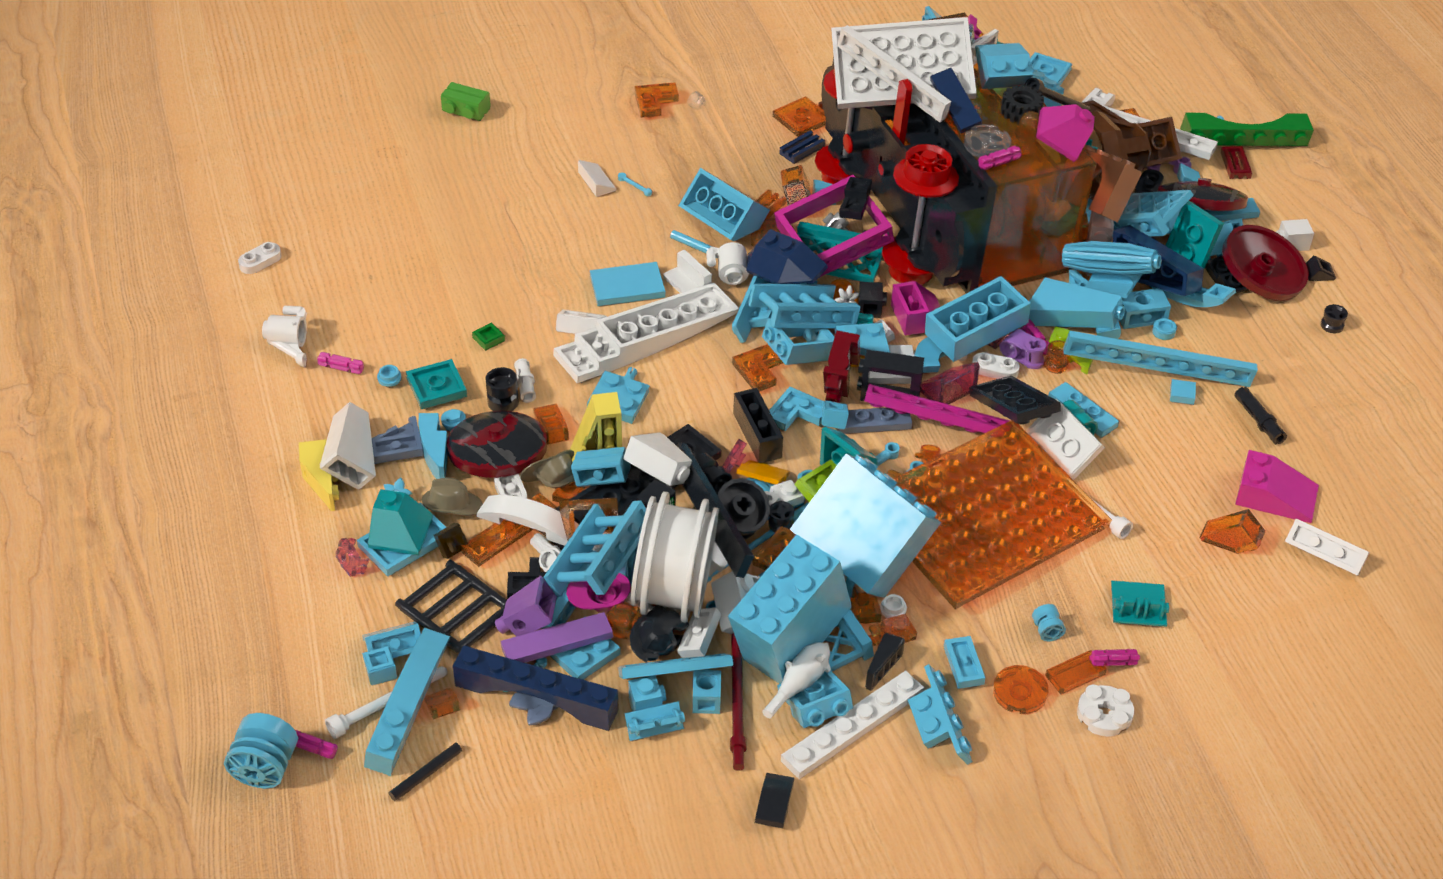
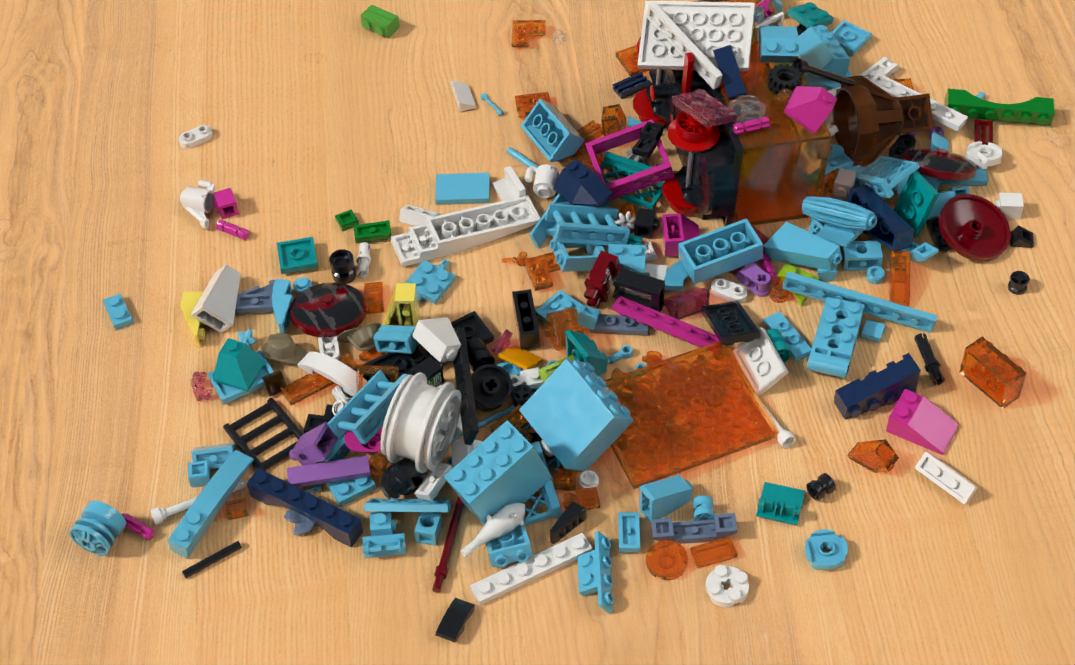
camera: 15 degrees right, 5 degrees up
(211, 479) = (118, 311): none -> medium azure plate
(323, 332) = (225, 203): none -> dark pink brick
(389, 375) = (264, 244): medium azure plate -> none
(527, 345) = (372, 231): none -> green plate
(679, 179) = (526, 102): none -> clear orange plate
(725, 359) = (519, 260): none -> clear orange hand
(804, 428) = (558, 323): none -> clear orange piece
(937, 142) = (704, 108): none -> clear pink plate
(996, 614) = (664, 497): none -> medium azure slope
(1047, 649) = (694, 531): none -> sand blue slope
(1114, 657) = (746, 545): dark pink axle -> none
(1116, 183) = (858, 148): nougat arch -> none
(1144, 417) = (836, 337): none -> medium azure hinge
(1182, 577) = (821, 486): none -> black wheel
(1195, 325) = (899, 277): none -> clear orange slope
(1212, 662) = (823, 560): none -> medium azure plate
(1214, 454) = (877, 388): none -> dark blue wedge
(1250, 182) = (984, 154): none -> white plate
(1343, 420) = (992, 372): none -> clear orange brick

